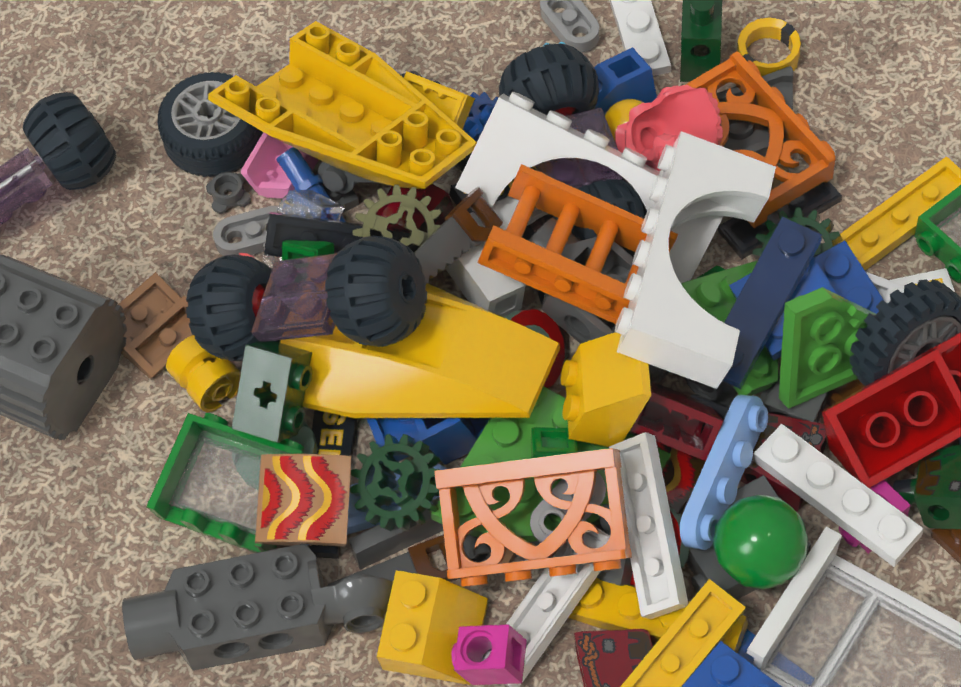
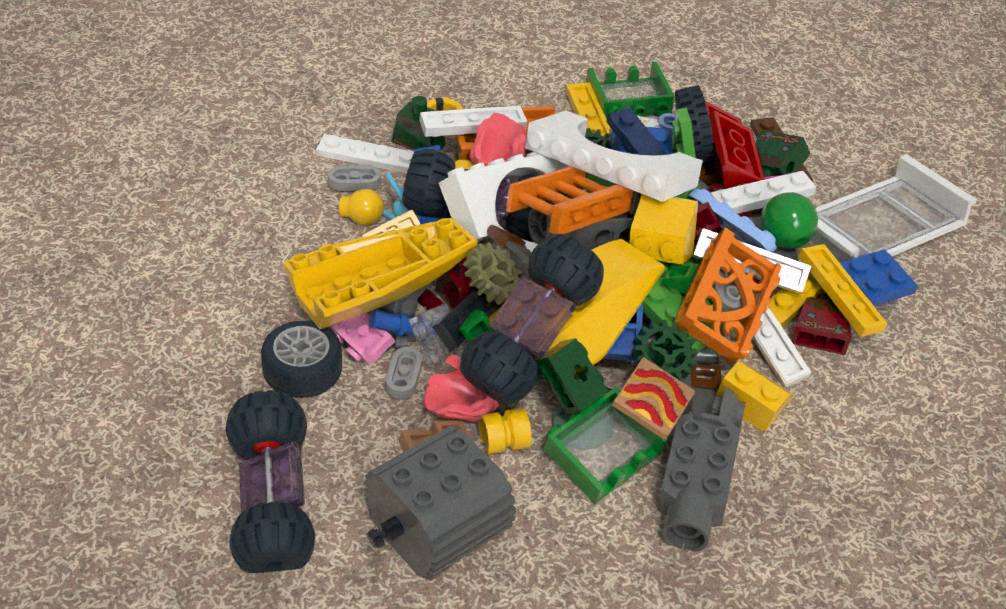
camera: 75 degrees left, 15 degrees down
(227, 182) = (360, 369): dark grey plate -> none
(503, 664) = (797, 354): dark pink brick -> none
(507, 45) = (362, 207): none -> yellow piece
(733, 88) = (464, 120): none -> white plate

